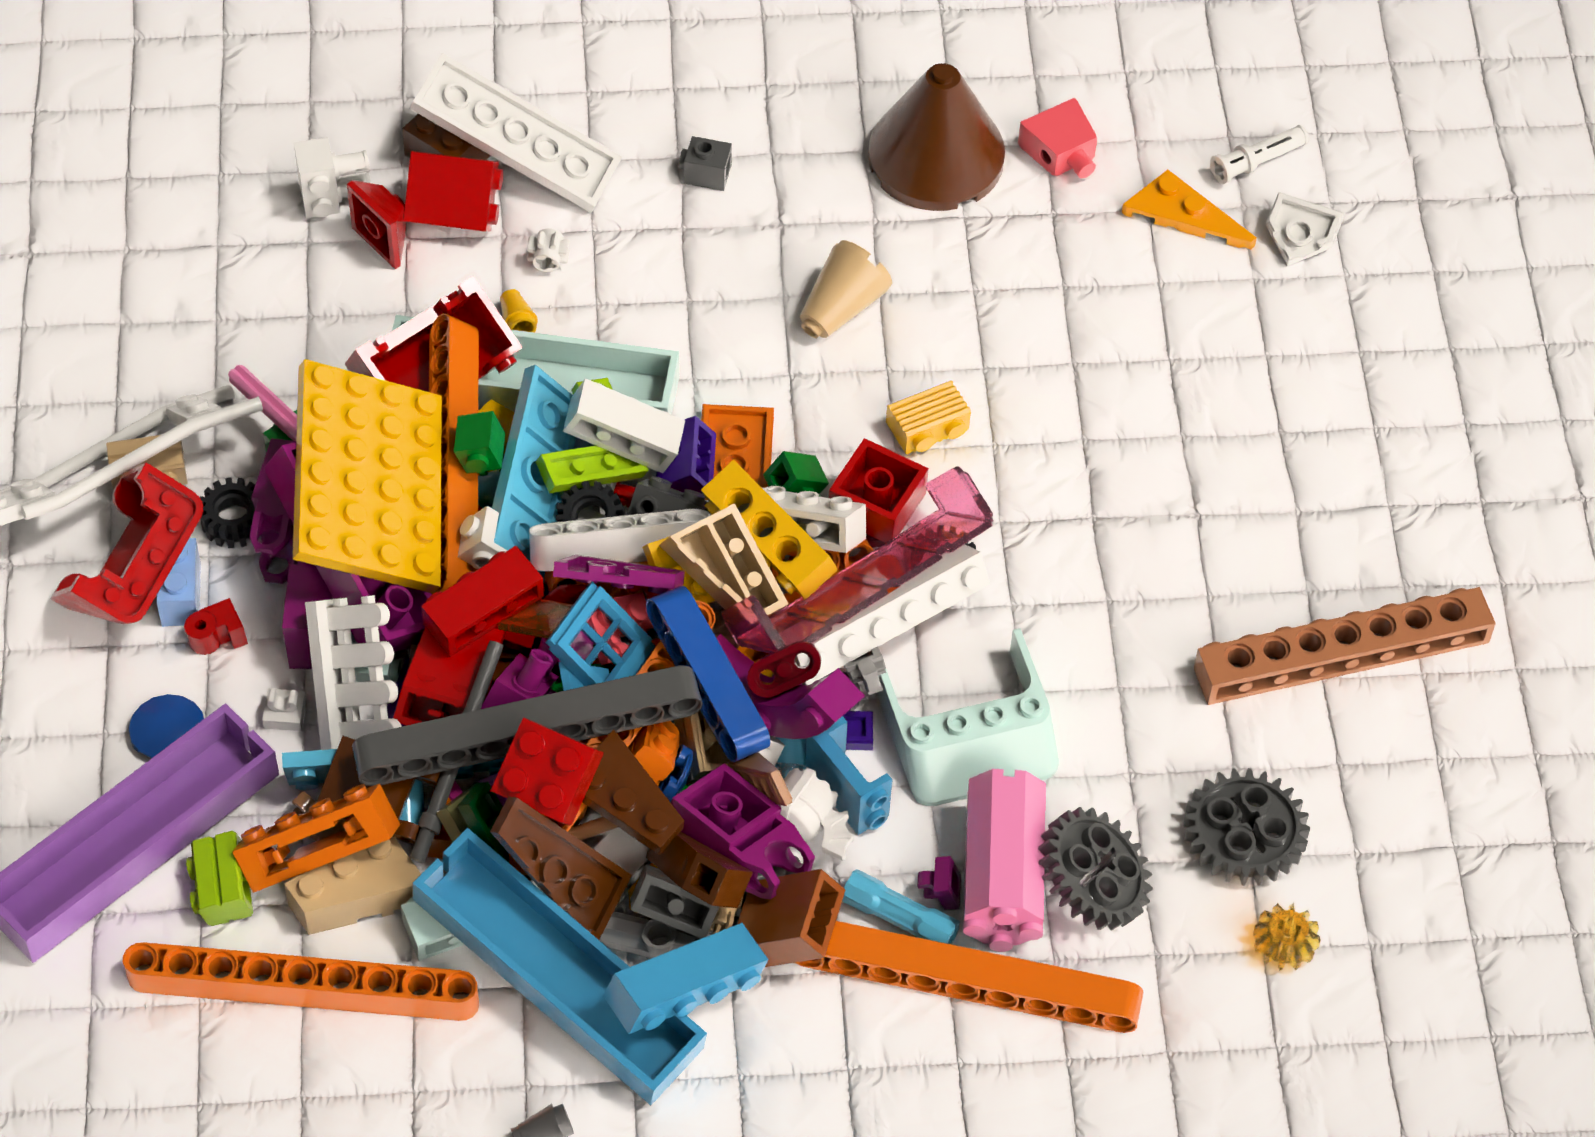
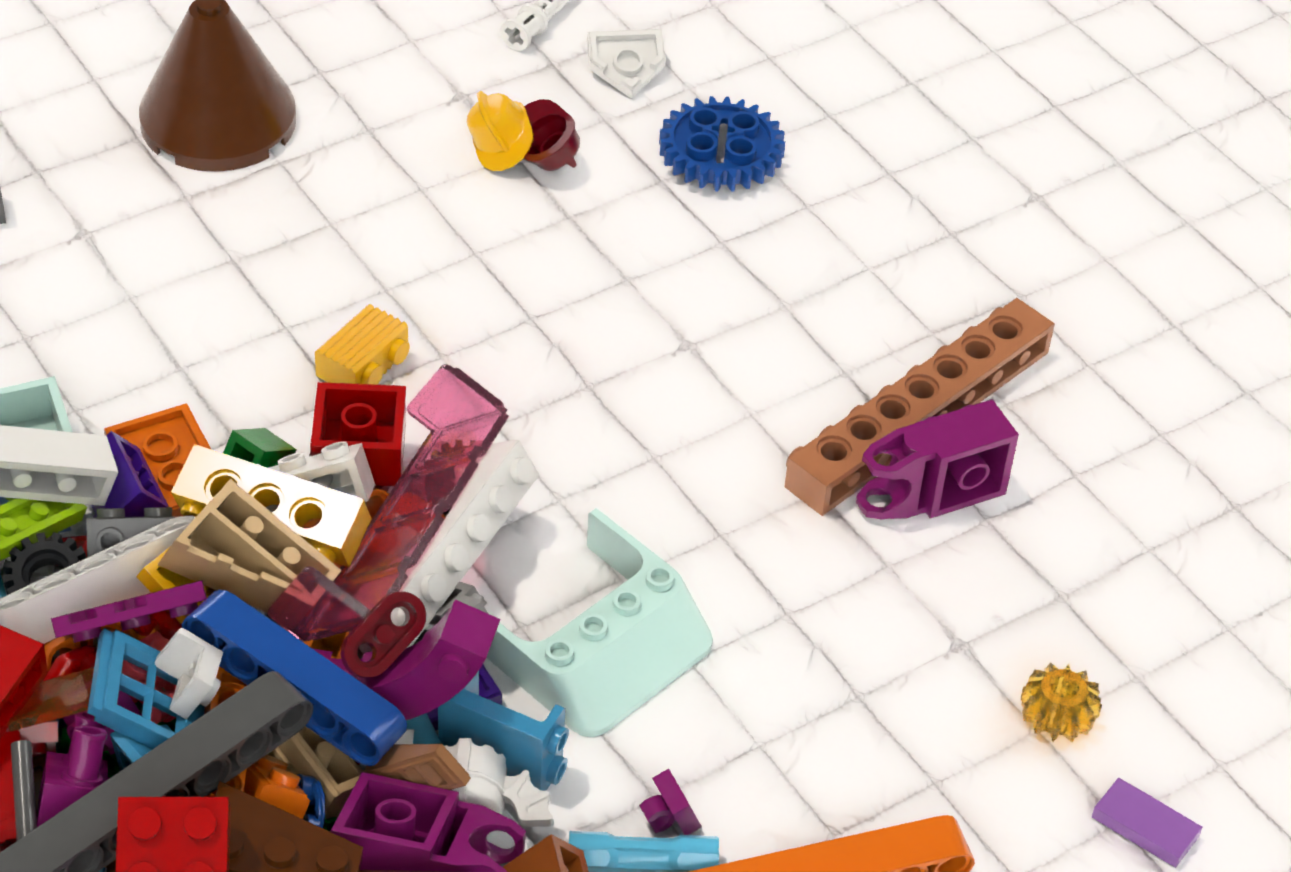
camera: 30 degrees left, 10 degrees down
(642, 636) = (195, 667): none -> white bracket
(843, 289) = (199, 259): tan cone -> none
(1003, 859) = (729, 747): bright pink brick -> none
(1060, 139) = (340, 59): coral torso -> none
(1075, 848) = (830, 715): dark grey gear -> none
(1151, 258) = (499, 131): none -> yellow piece
(1182, 207) = (516, 81): light orange wing -> none
(1183, 278) = (553, 135): none -> dark red piece
(1275, 815) = (946, 612): dark grey gear -> none
(1292, 1057) = (1147, 822): none -> medium lavender tile
(1316, 705) = (941, 463): none -> magenta brick
(1348, 358) = (751, 148): none -> blue gear

